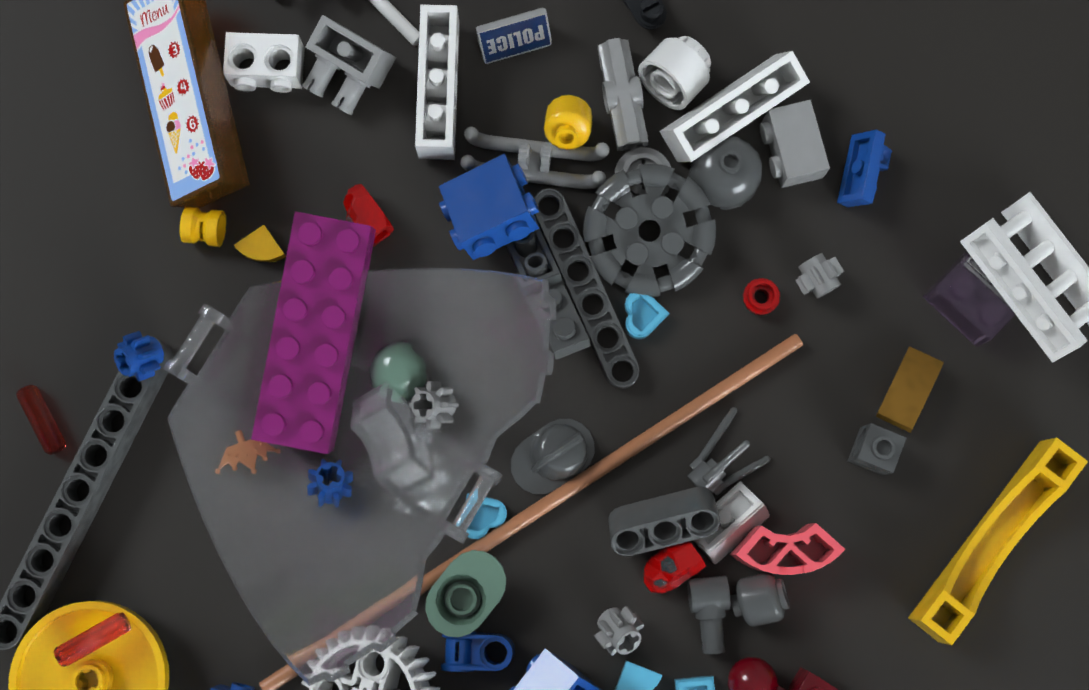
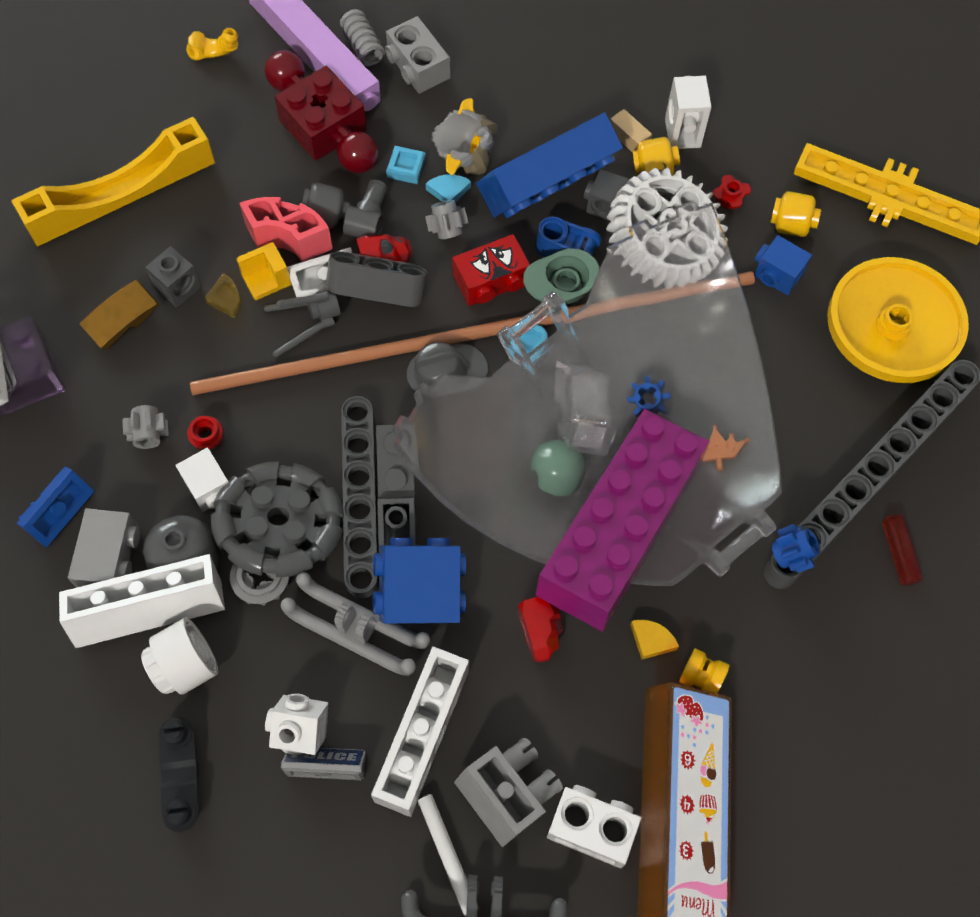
camera: 160 degrees left, 15 degrees down
(92, 639) = (888, 339): clear red axle -> none
(433, 404) = (536, 422): light grey gear -> none
(546, 584) = (490, 270): none -> red brick
(548, 52) = (297, 724): none -> white brick
(568, 122) = (308, 645): yellow head -> none
(622, 94) = (243, 659): light grey piece -> none
(643, 315) = (318, 453): medium azure tile -> none
(736, 243) = (202, 478): none -> white brick
(787, 495) = (264, 271): none -> yellow panel
(815, 456) = (224, 296): none -> clear yellow tile

